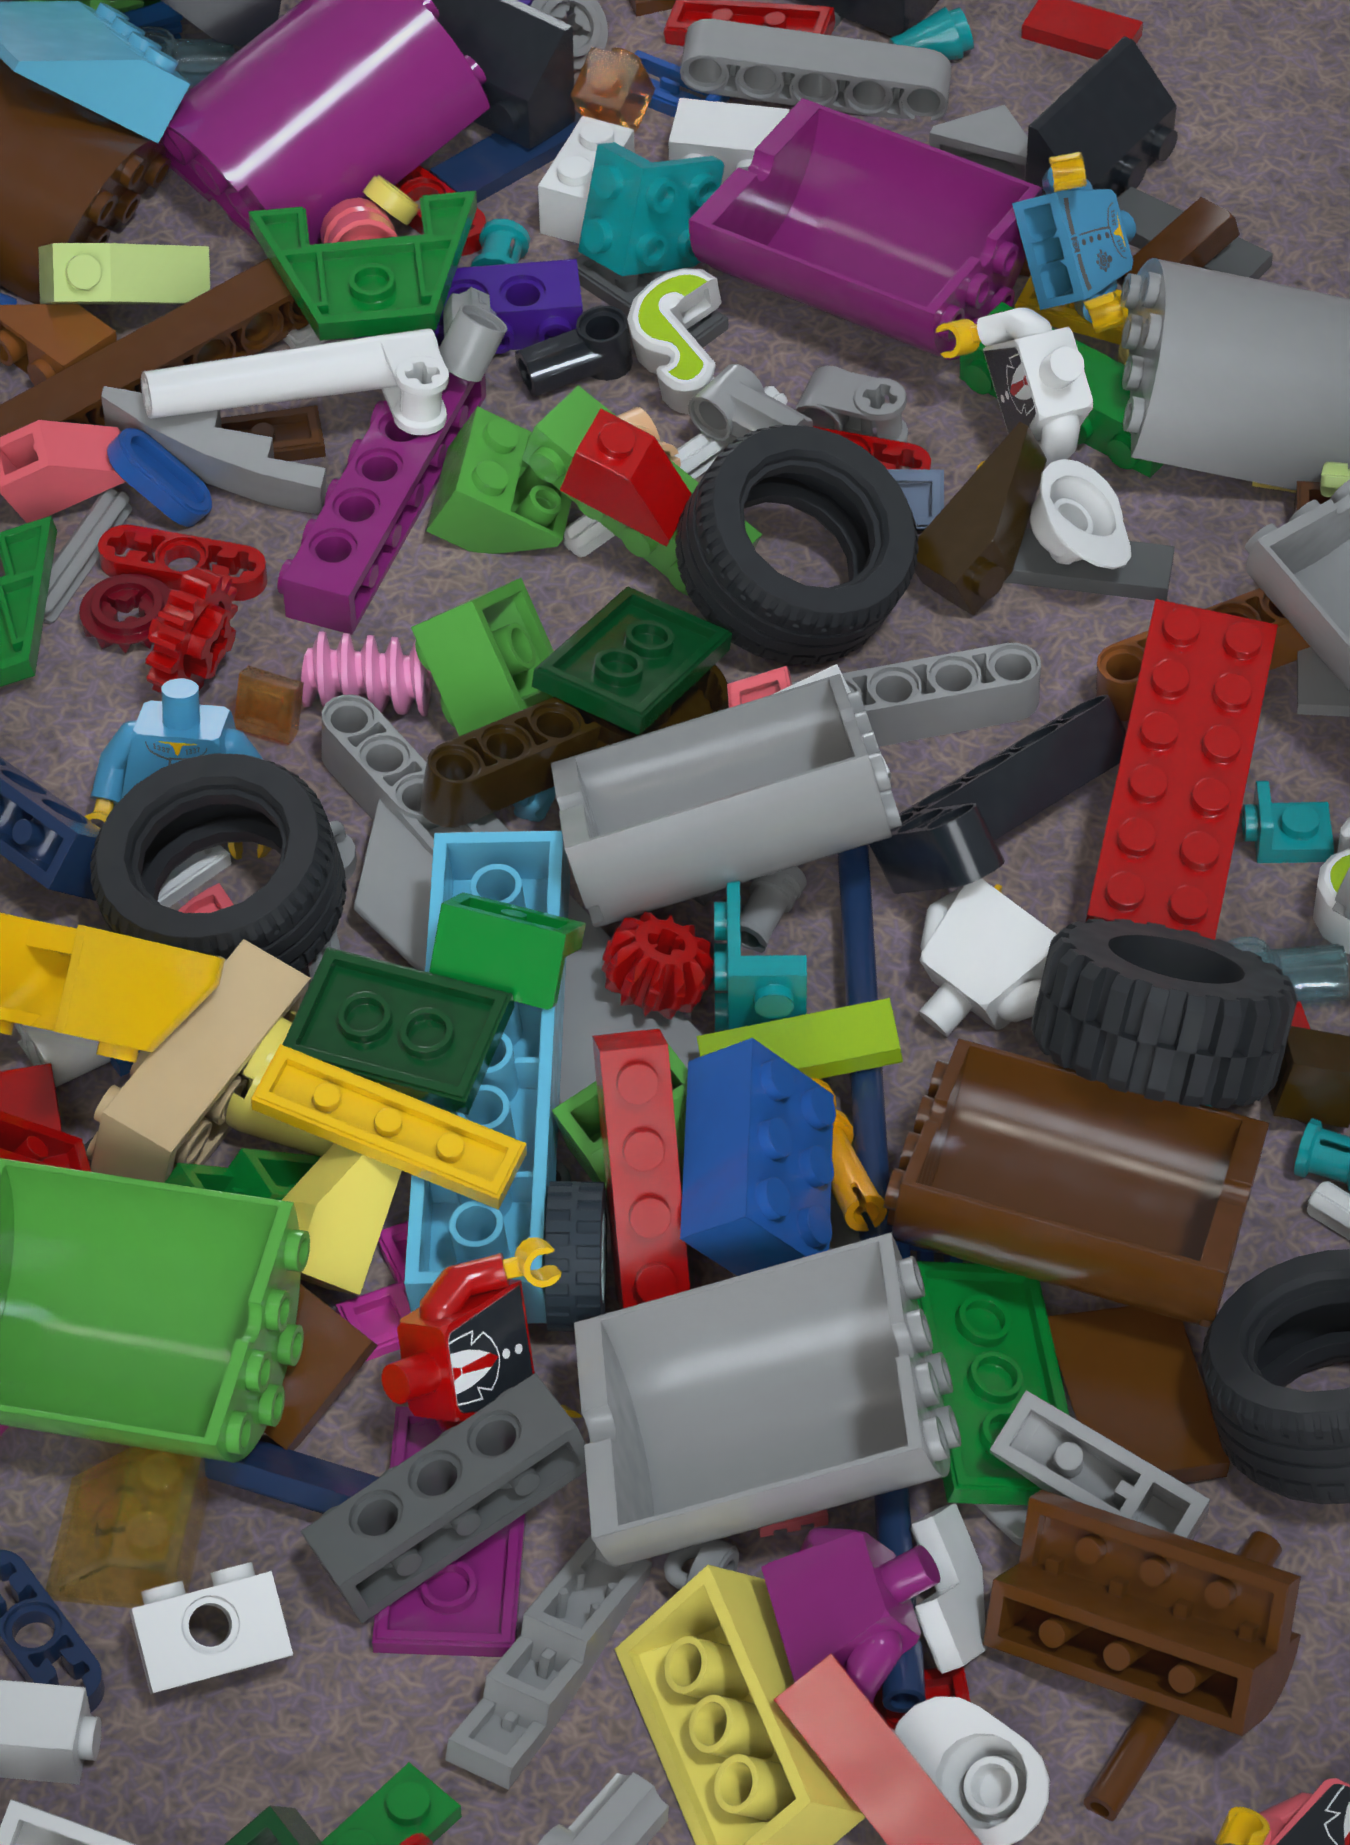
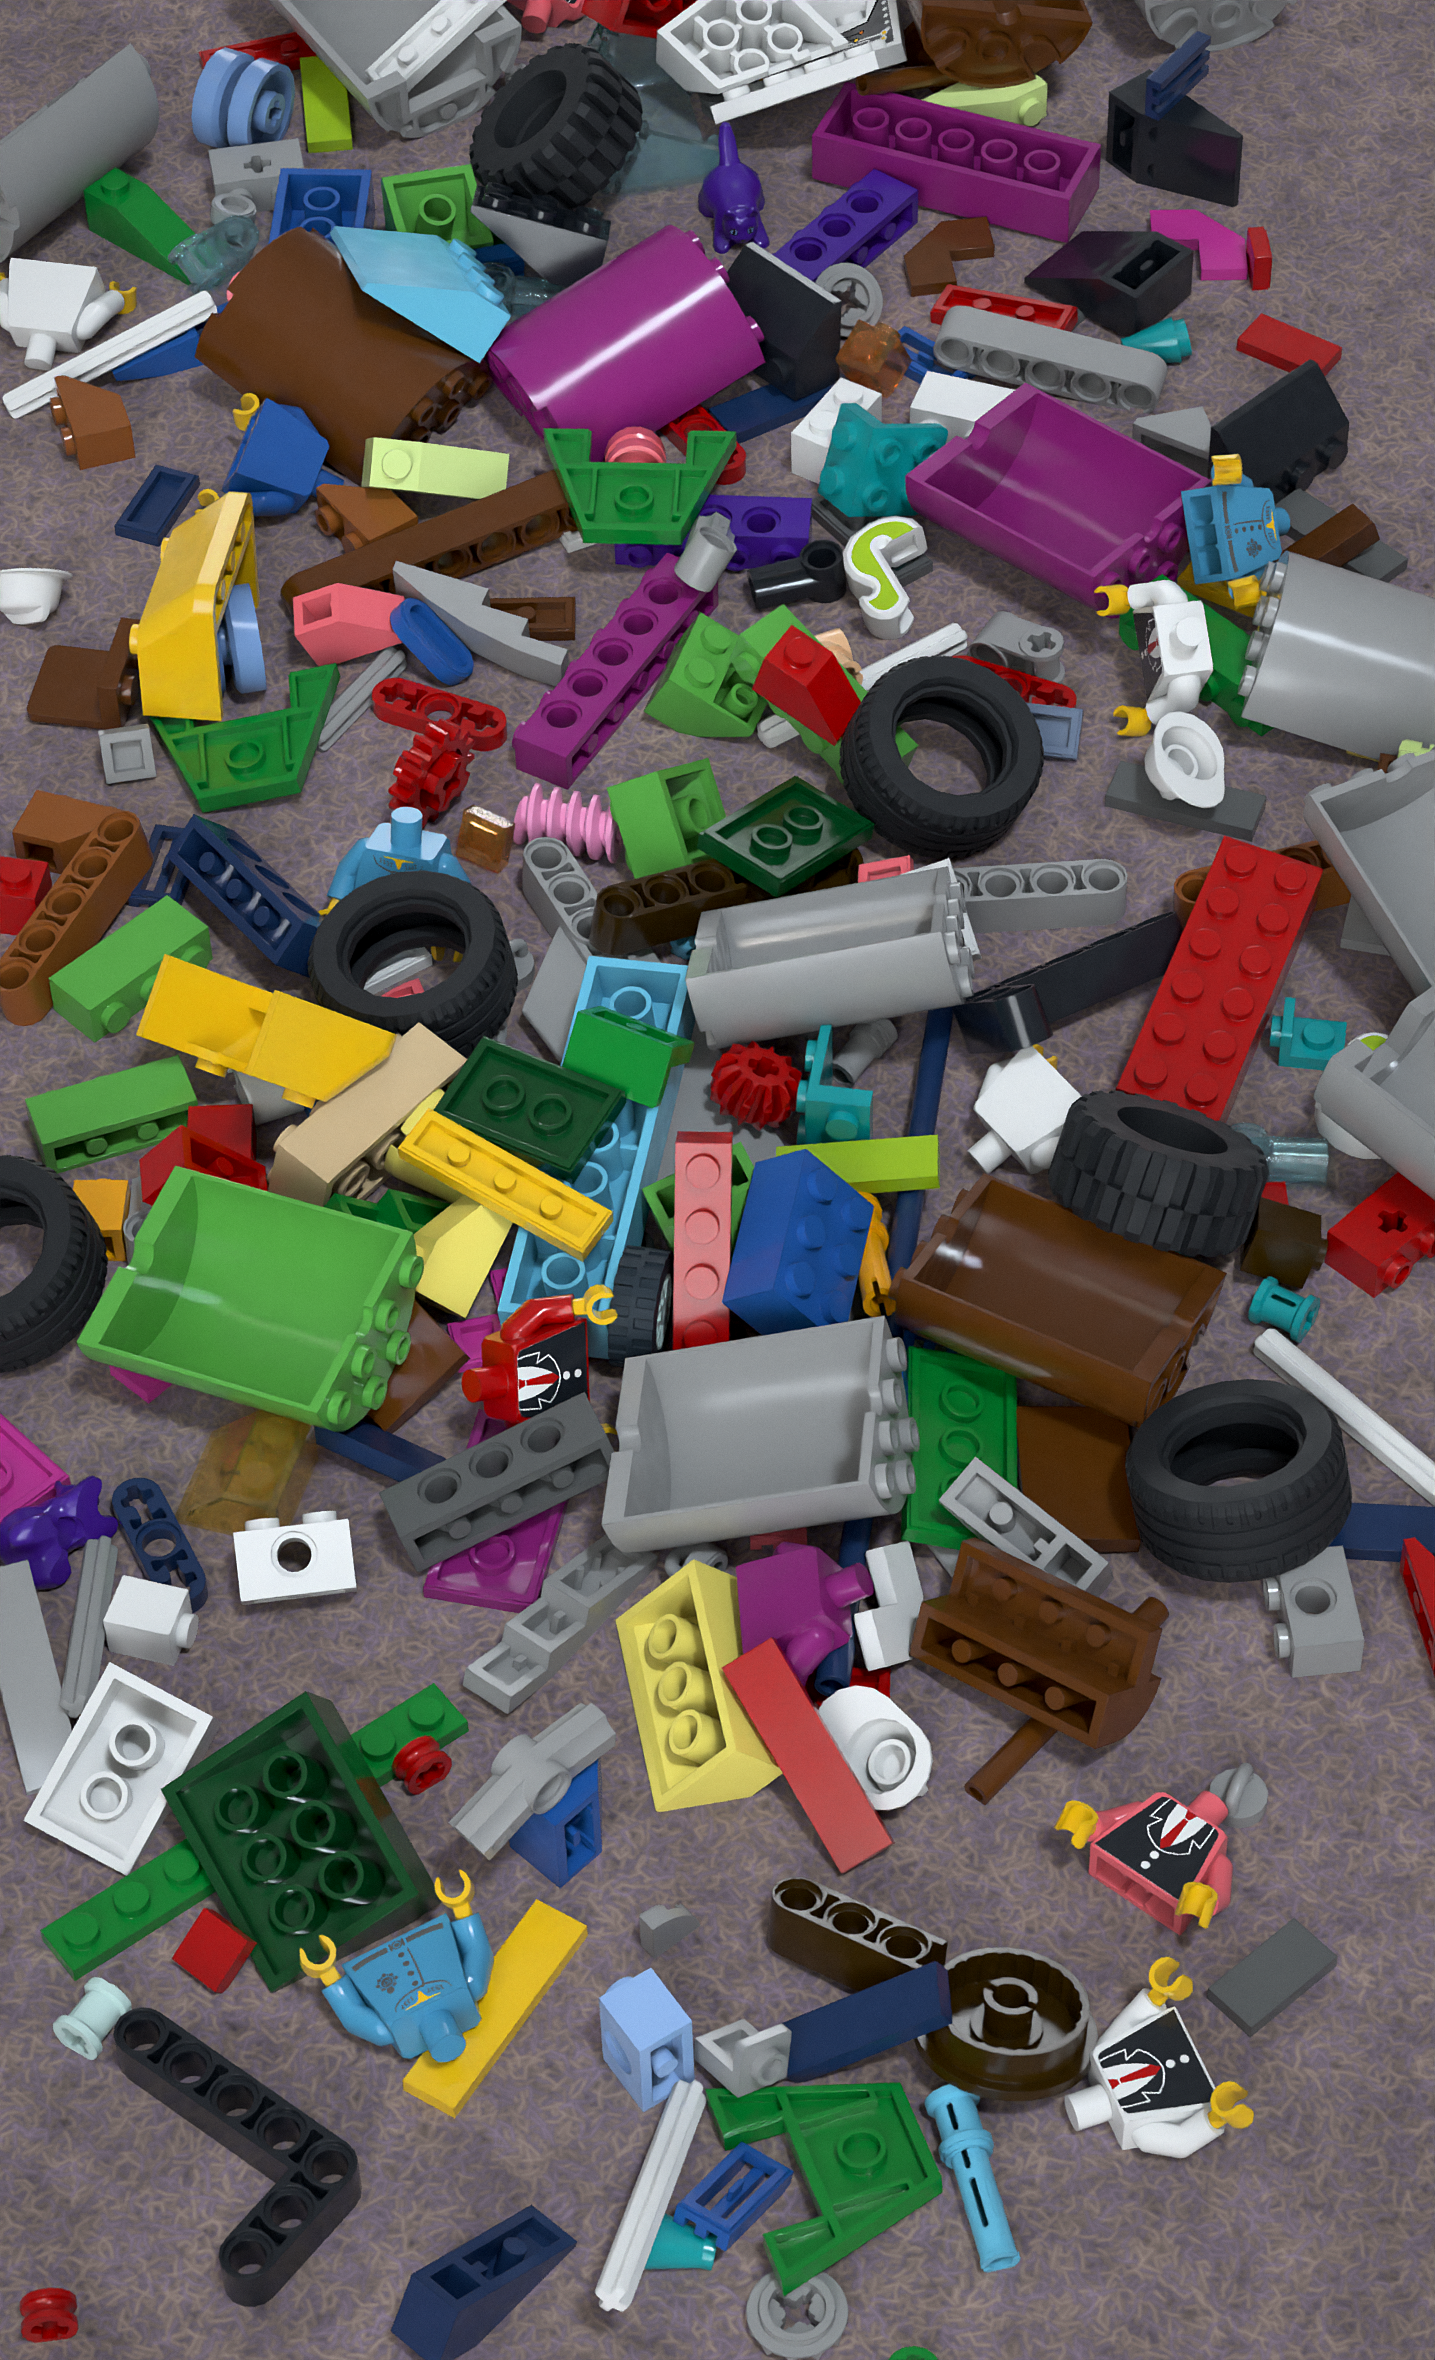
camera: 10 degrees right, 0 degrees up
(122, 594) = (377, 734): dark red gear -> none
(391, 199) = (667, 430): light yellow tile -> none
(400, 364) = (642, 569): white axle -> none
(496, 241) = (749, 478): teal bush -> none
(737, 405) = (922, 633): light grey piece -> none
(981, 529) = (1102, 762): dark brown slope -> none

